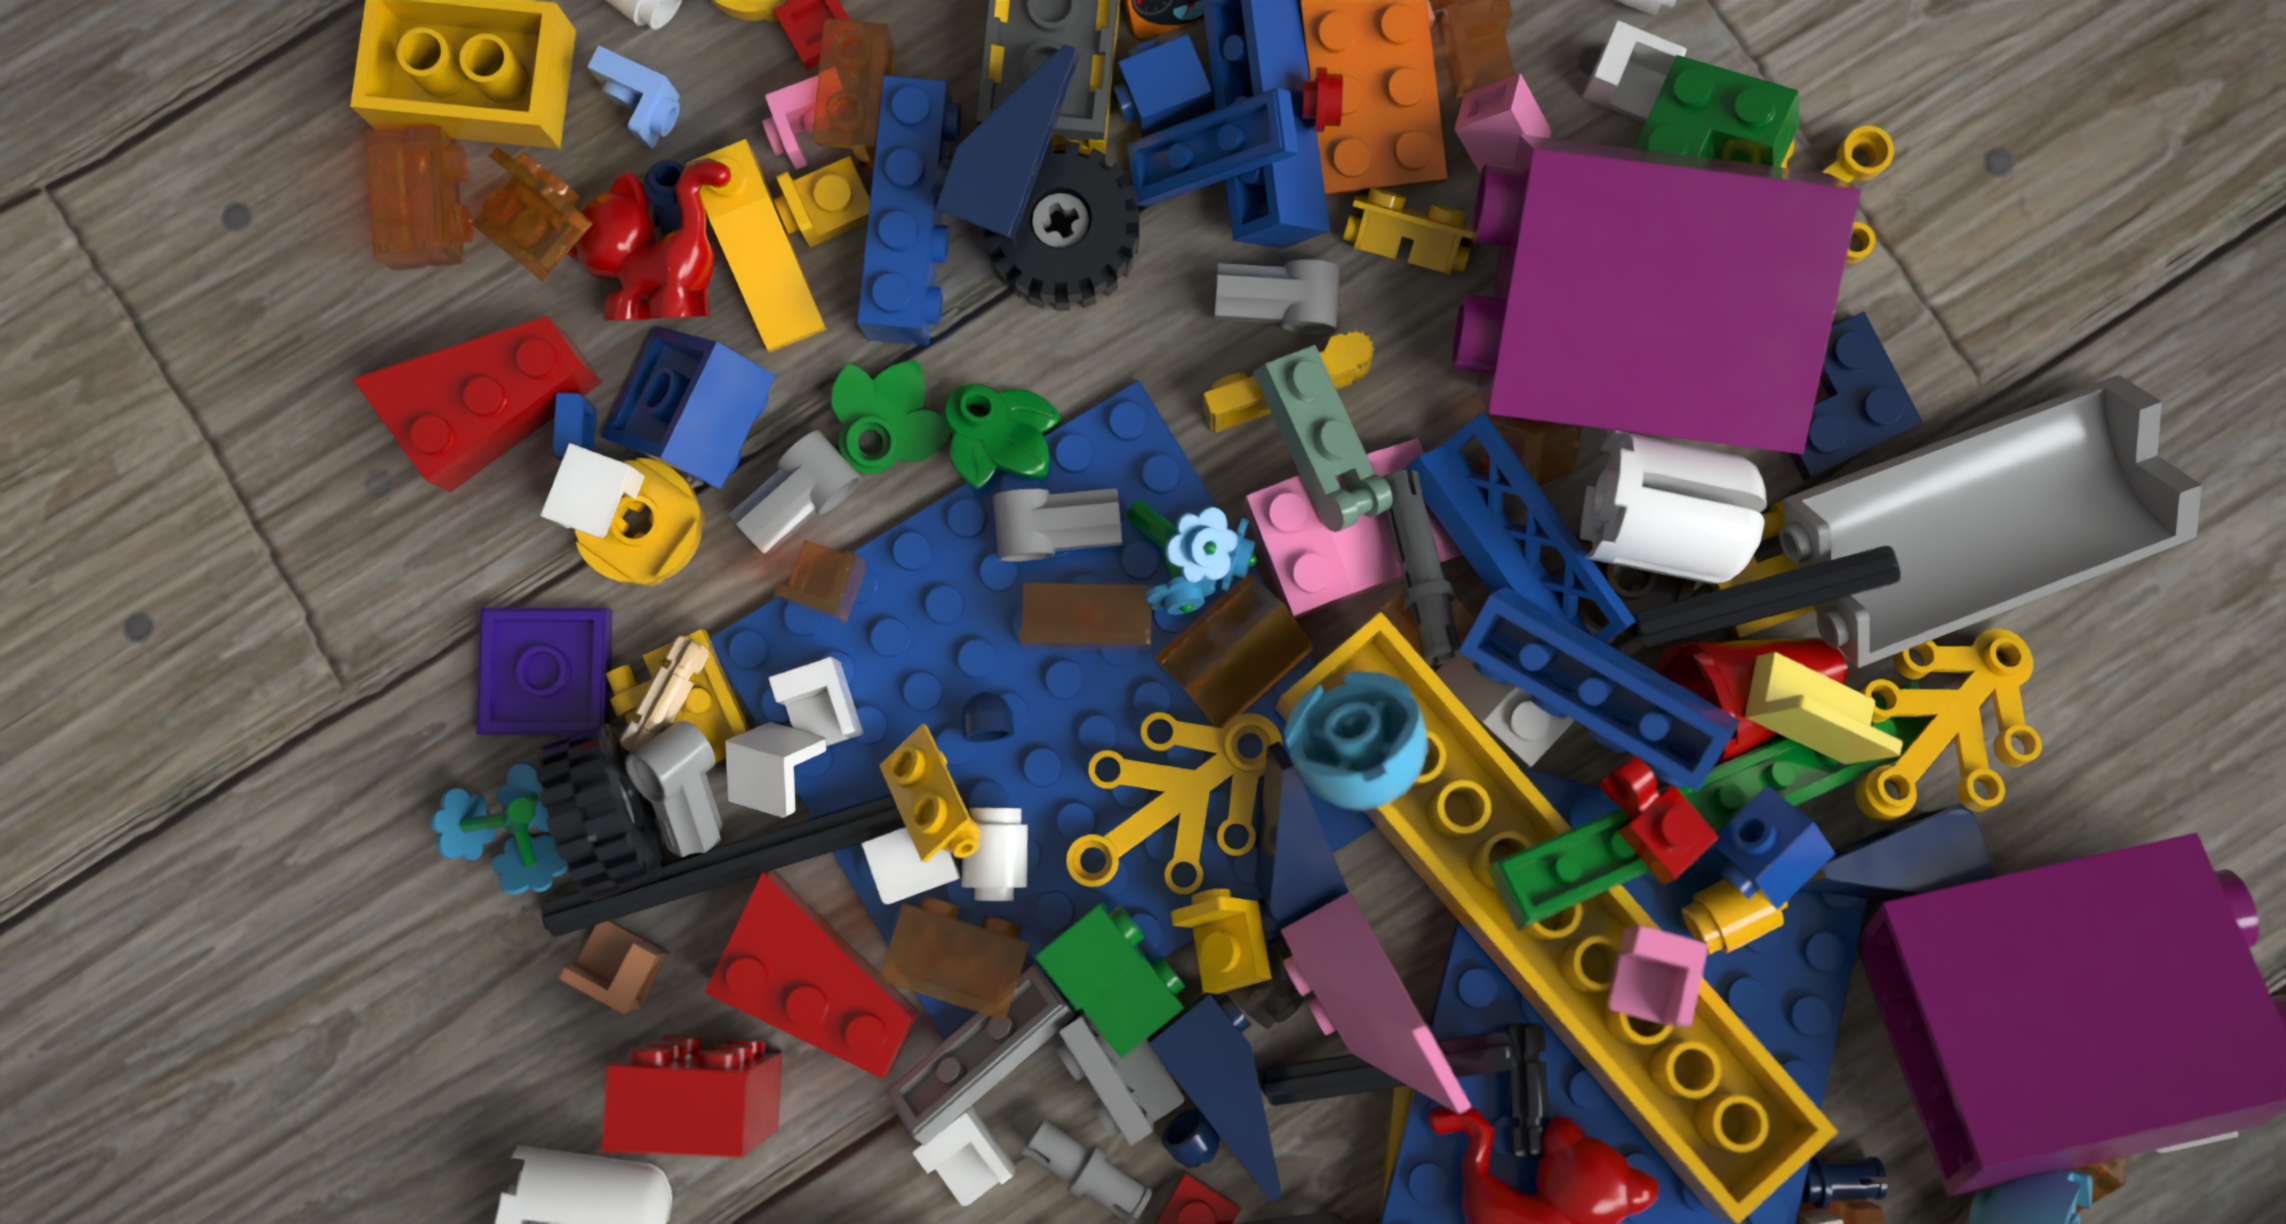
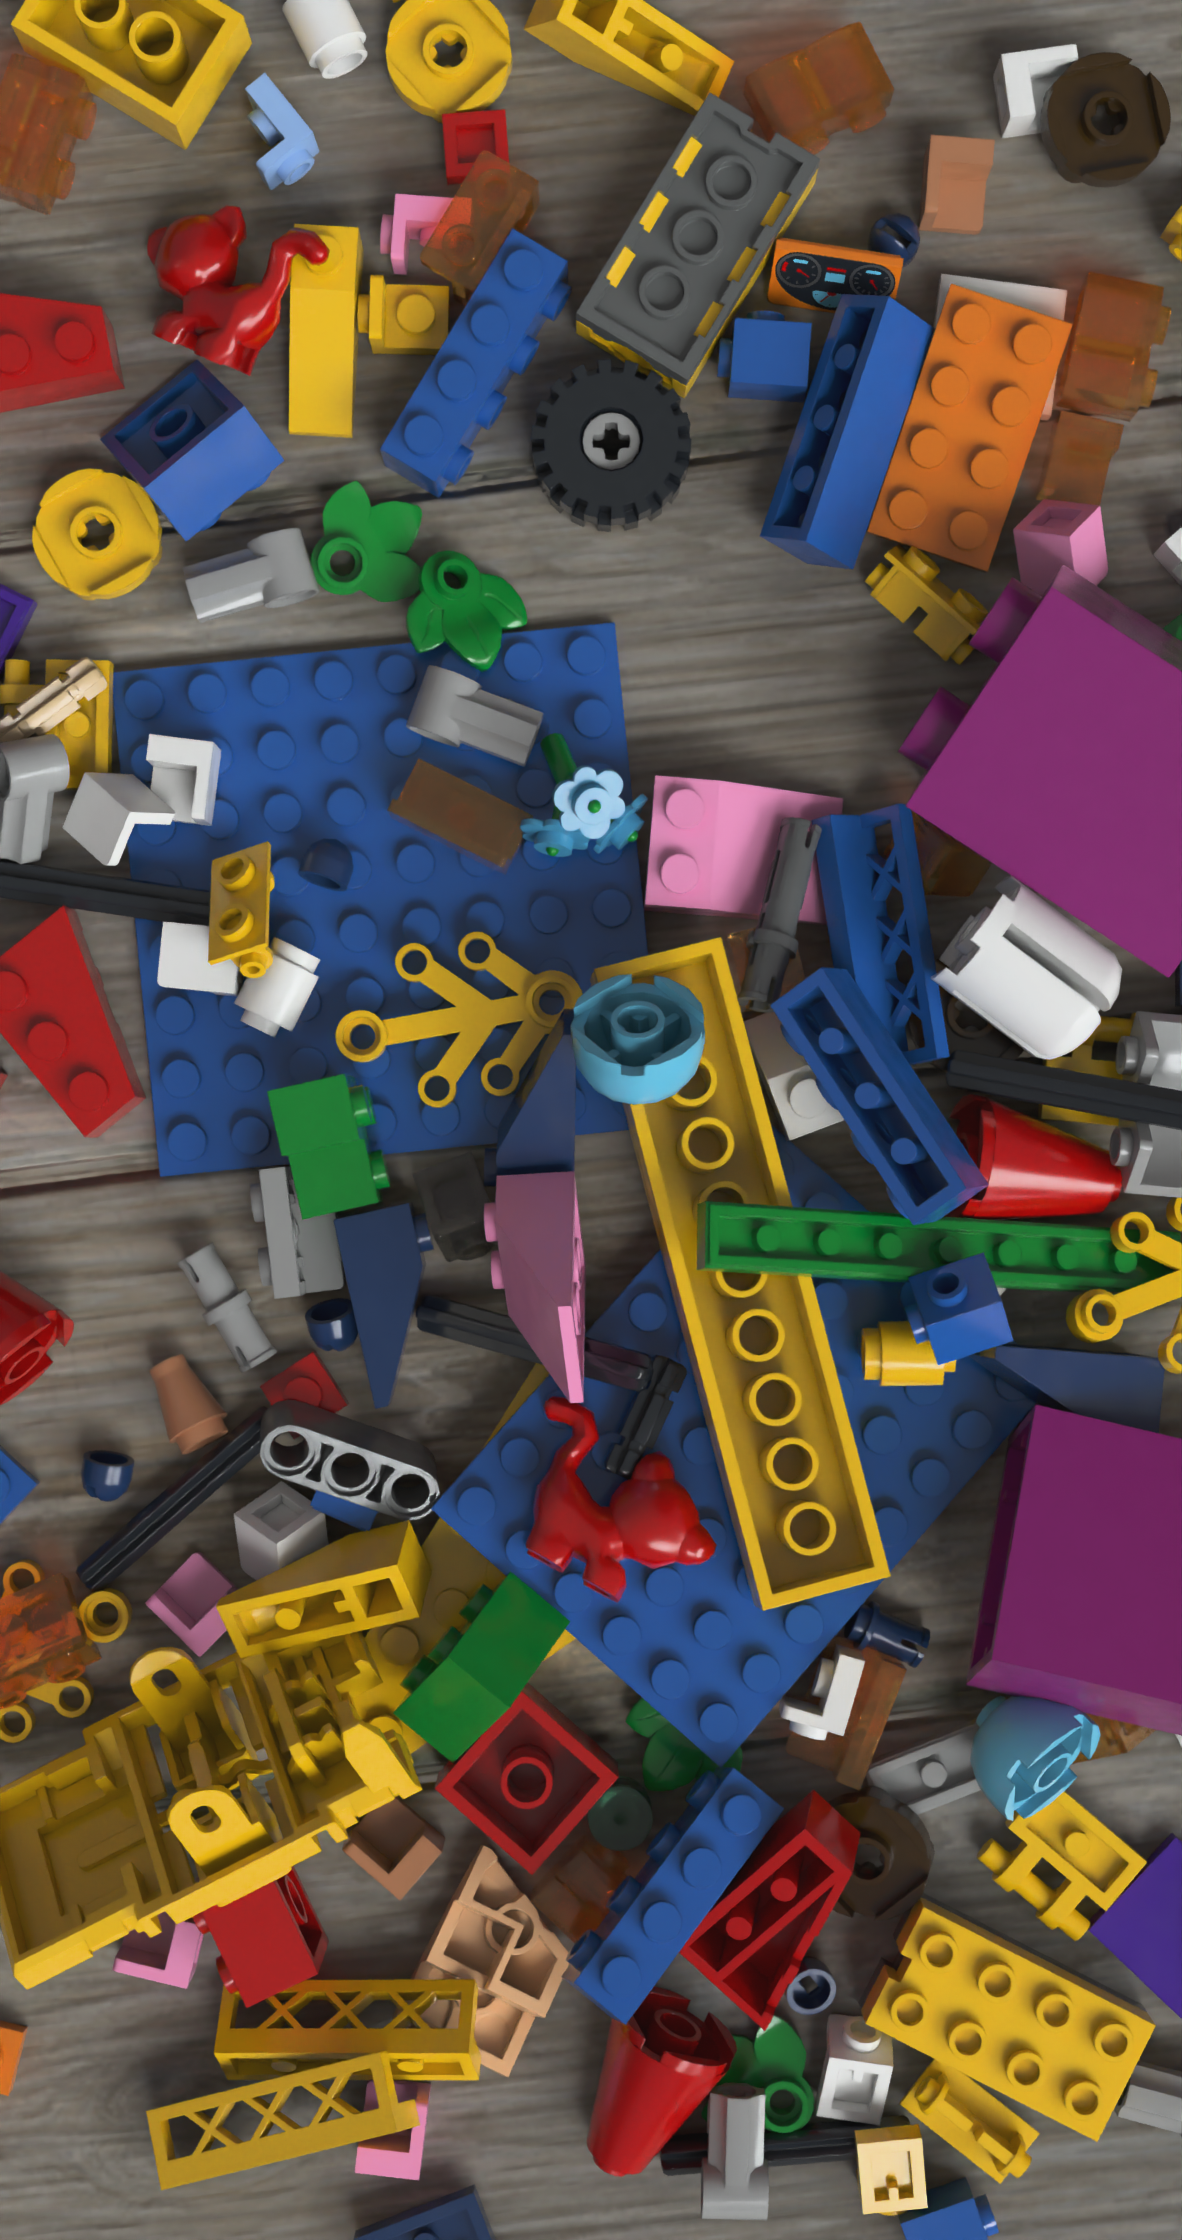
camera: 20 degrees right, 5 degrees up
(531, 215) = (130, 204): clear orange bracket -> none
(573, 424) = (78, 422): blue tile -> none
(589, 491) = (66, 487): white panel -> none
(660, 190) = (258, 238): dark blue pin -> none
(824, 581) = (240, 670): clear orange panel -> none
(956, 958) = (198, 1063): clear orange bracket -> none
(966, 1157) = (126, 1243): white panel -> none
(978, 1057) = (181, 1158): light grey tile -> none
(1002, 157) = (580, 361): dark blue slope -> none
(1213, 147) = (781, 440): blue tile -> none
(1226, 940) = (446, 1162): yellow bracket -> none
(1235, 651) = (579, 912): clear orange panel -> none
(1240, 400) = (749, 691): yellow hinge -> none
(1296, 296) = (793, 613): light grey piece -> none
(1322, 439) = (748, 756): sand green plate -> none
(1323, 99) = (903, 444): red plate -> none
(1657, 976) = (798, 1367): bright pink panel -> none
(1662, 825) = (870, 1245): red plate -> none
(1816, 711) = (1063, 1210): light yellow panel -> none

